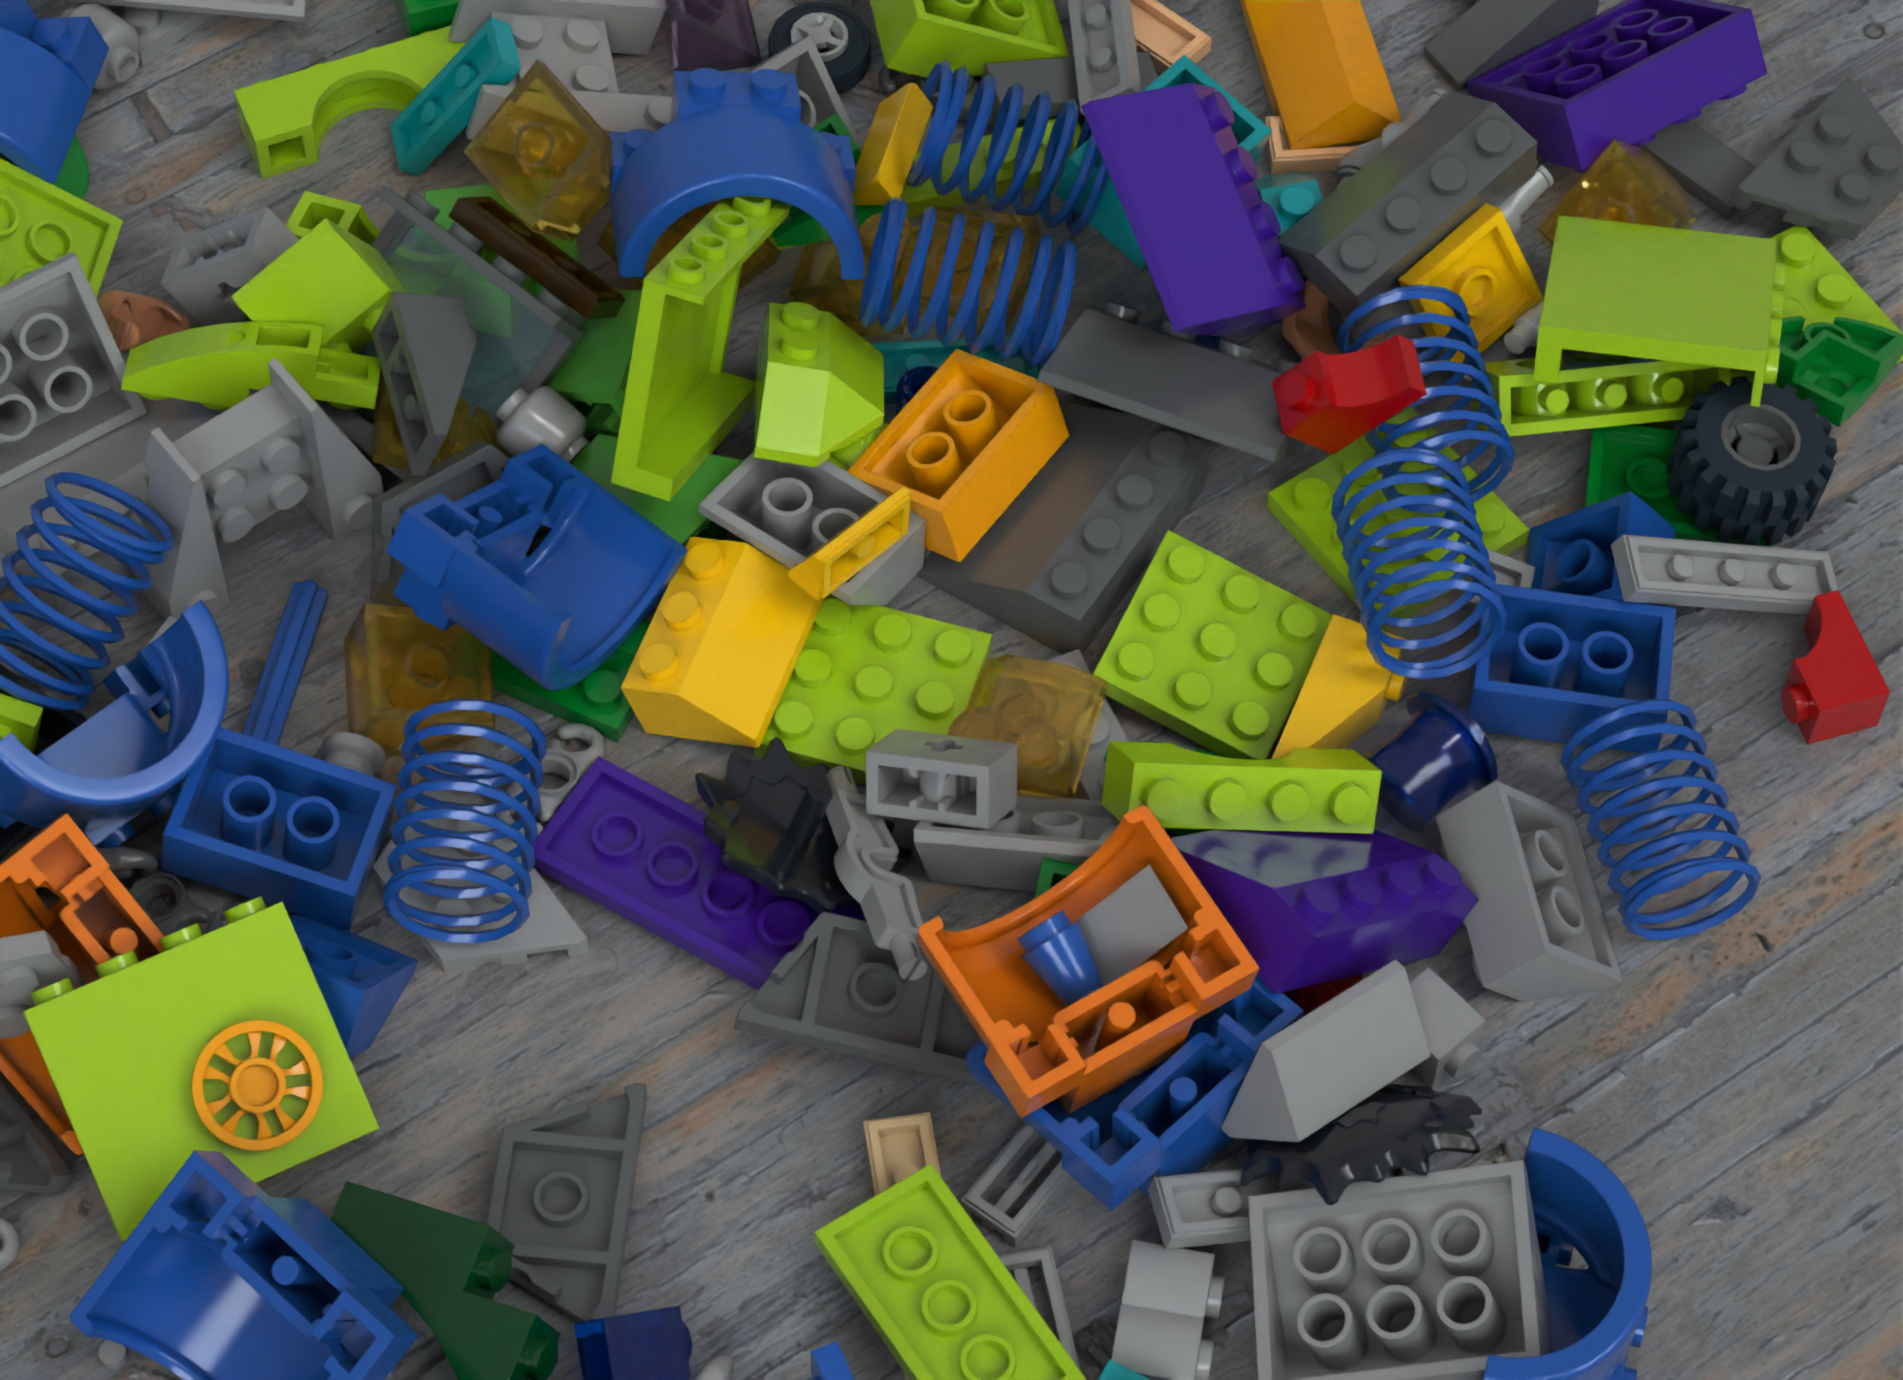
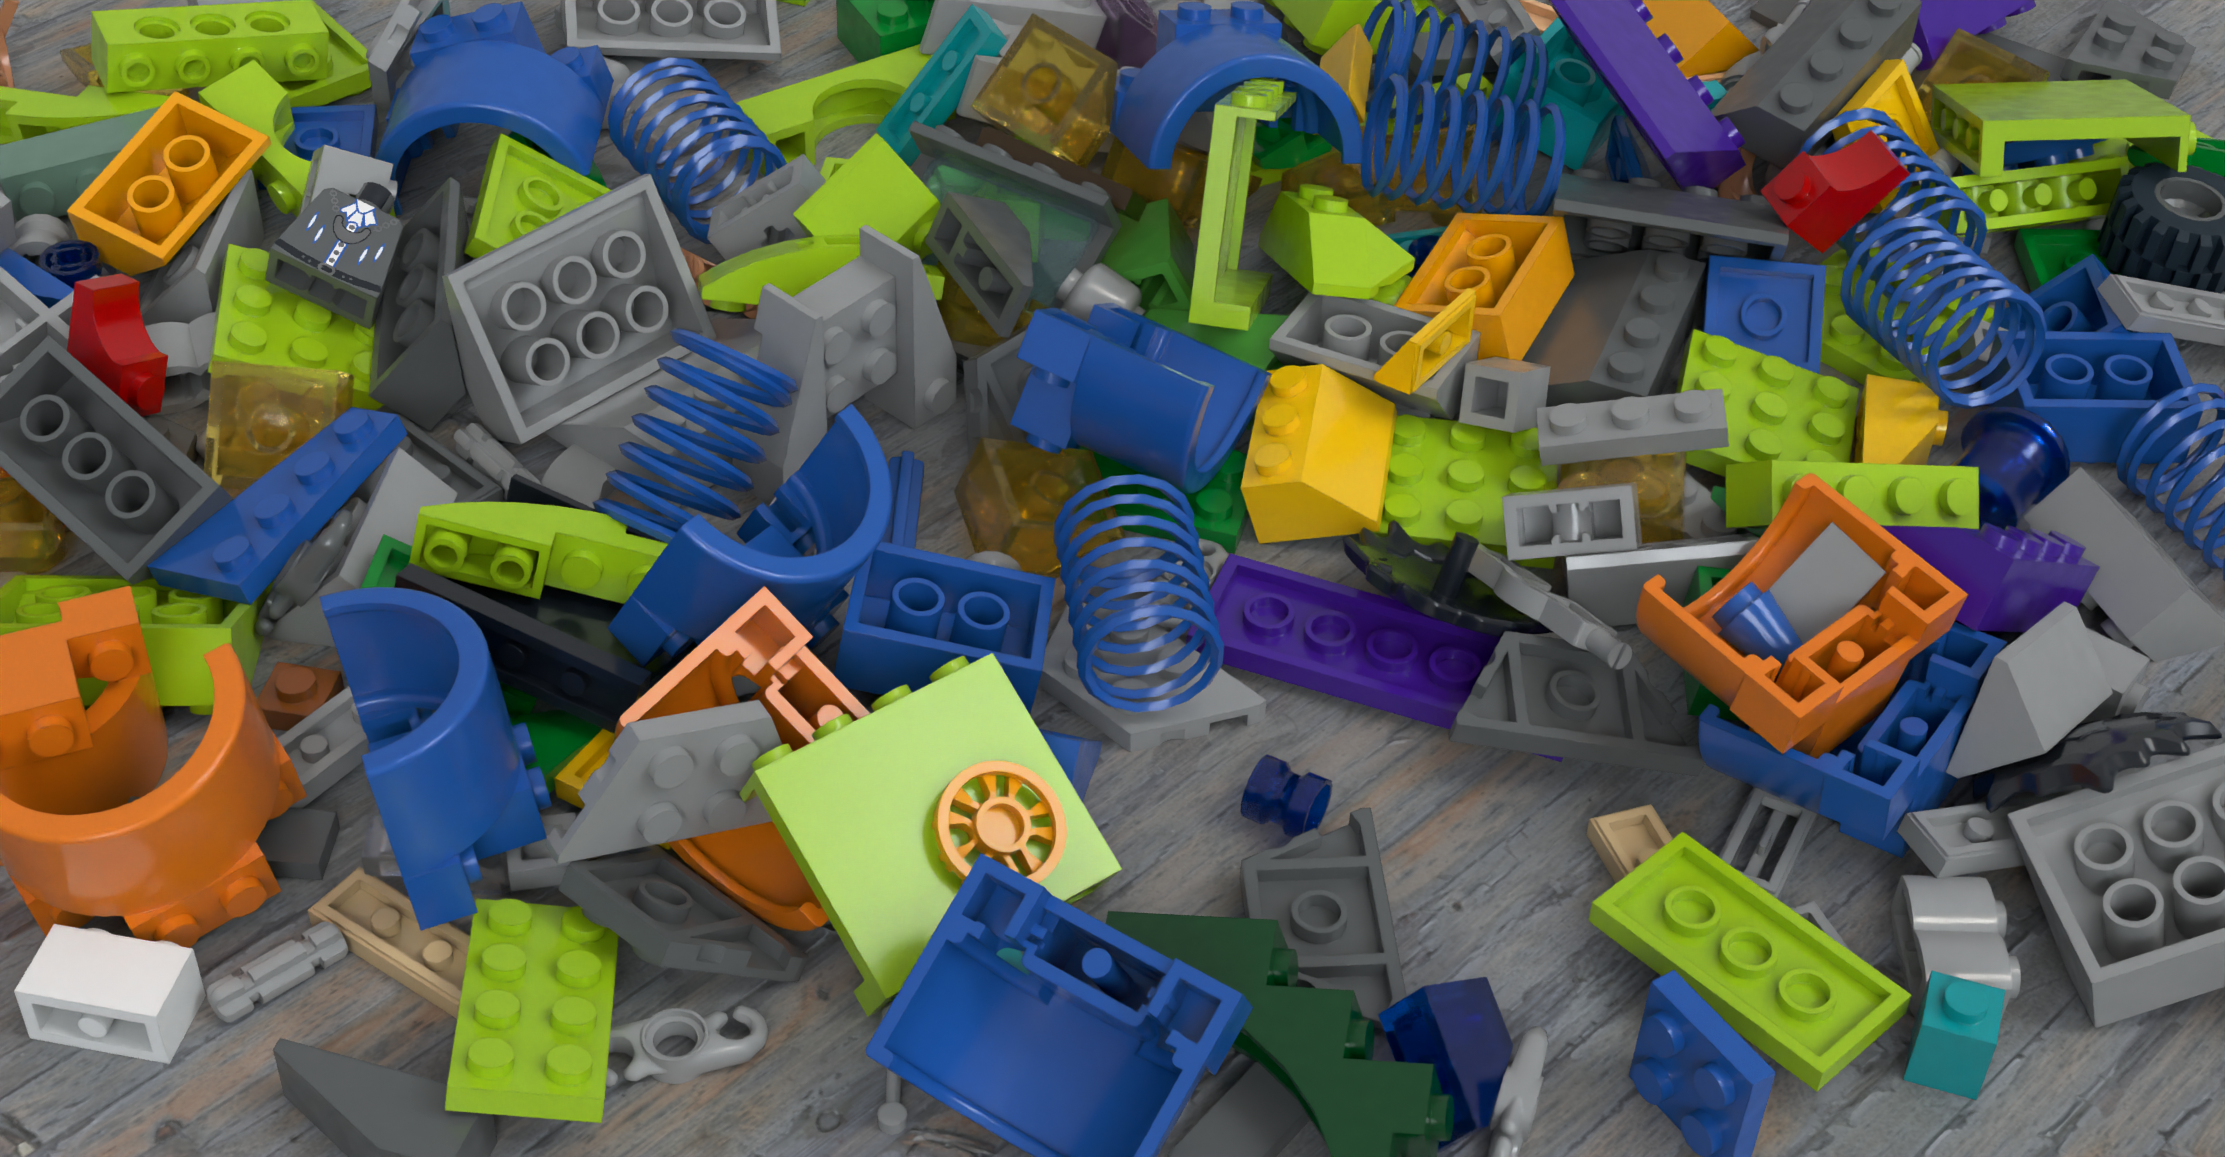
camera: 10 degrees left, 15 degrees down
(183, 182) = (676, 194): none -> blue piece
(569, 1059) = (1285, 797): none -> clear blue wheel
(935, 595) = (1503, 393): none -> light grey brick
(1043, 666) = (1632, 427): none -> light grey plate
(1259, 513) = (1767, 307): none -> blue plate

